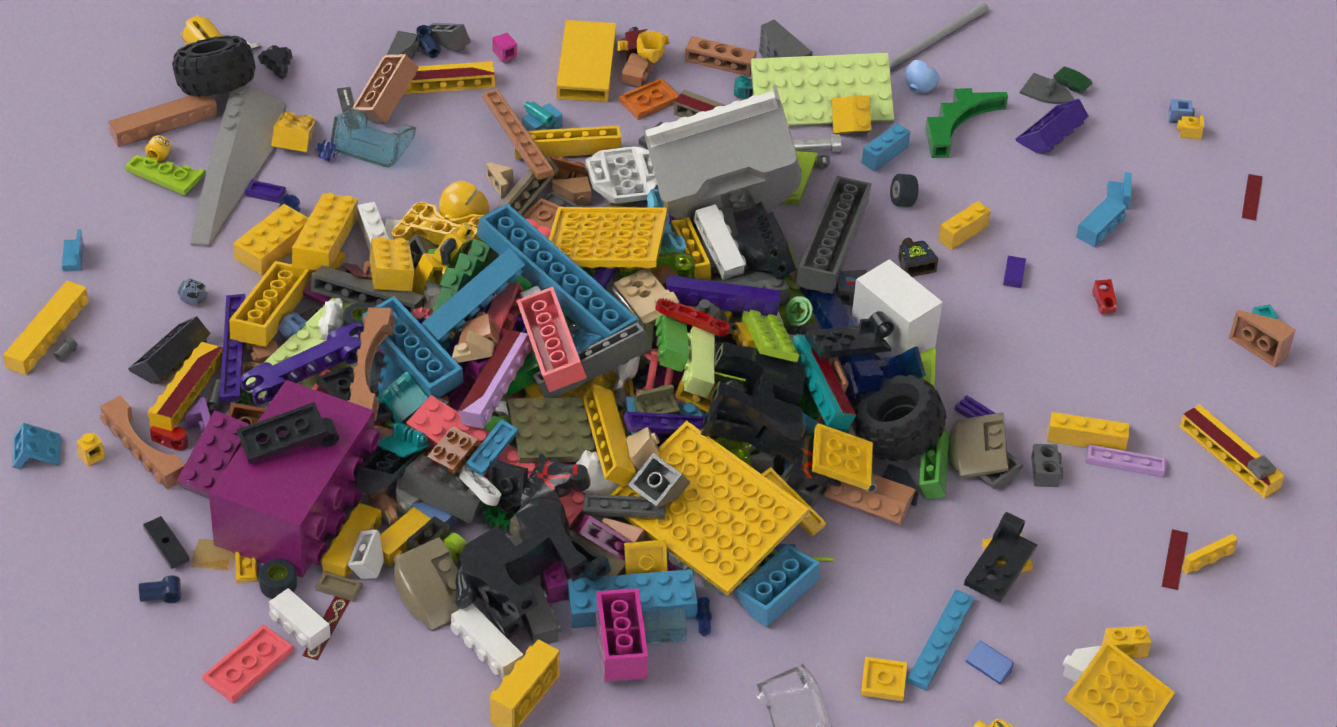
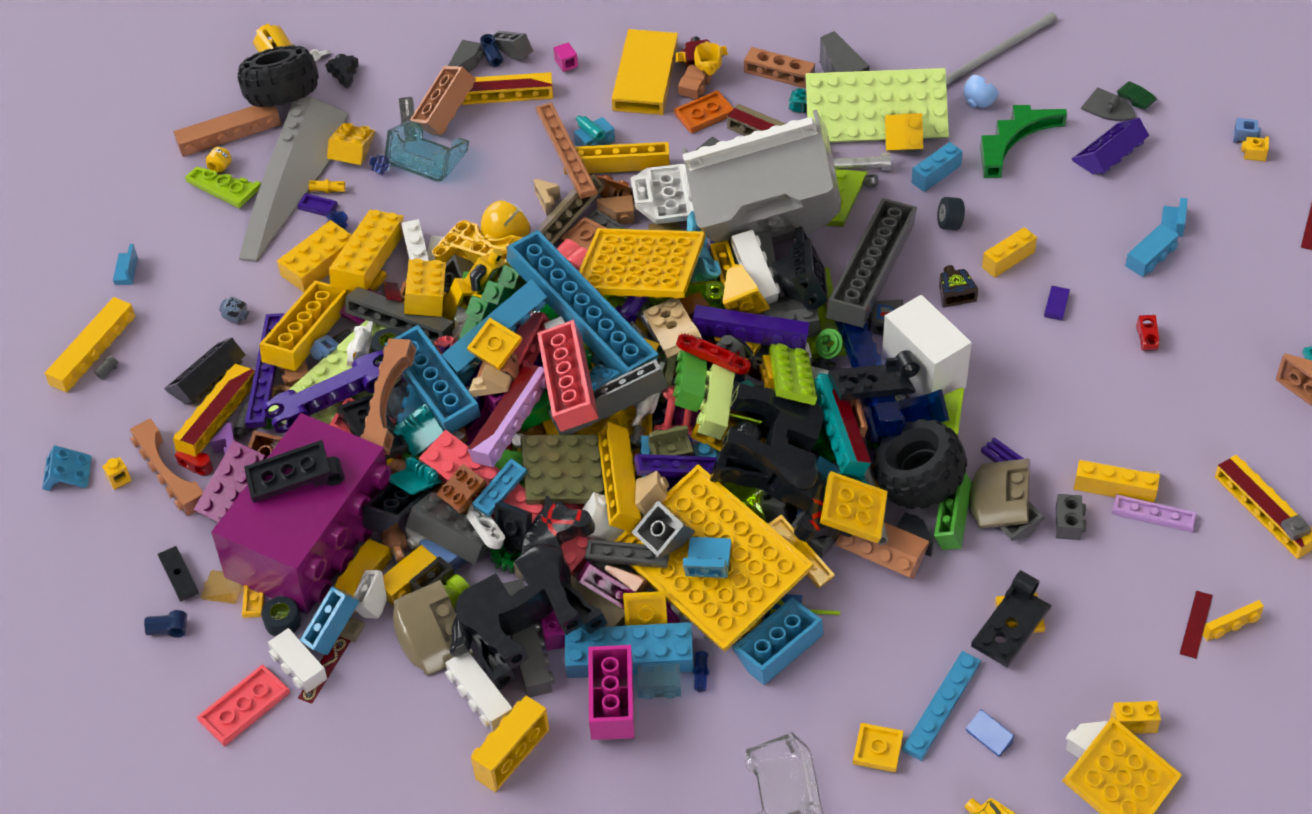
camera: 10 degrees right, 5 degrees up
(273, 172) = (327, 186): none -> yellow pin
(330, 579) = (329, 620): none -> dark azure brick
(476, 310) = (494, 344): none -> yellow plate
(705, 506) = (708, 557): none -> dark azure bracket
(712, 262) = (742, 293): none -> yellow slope

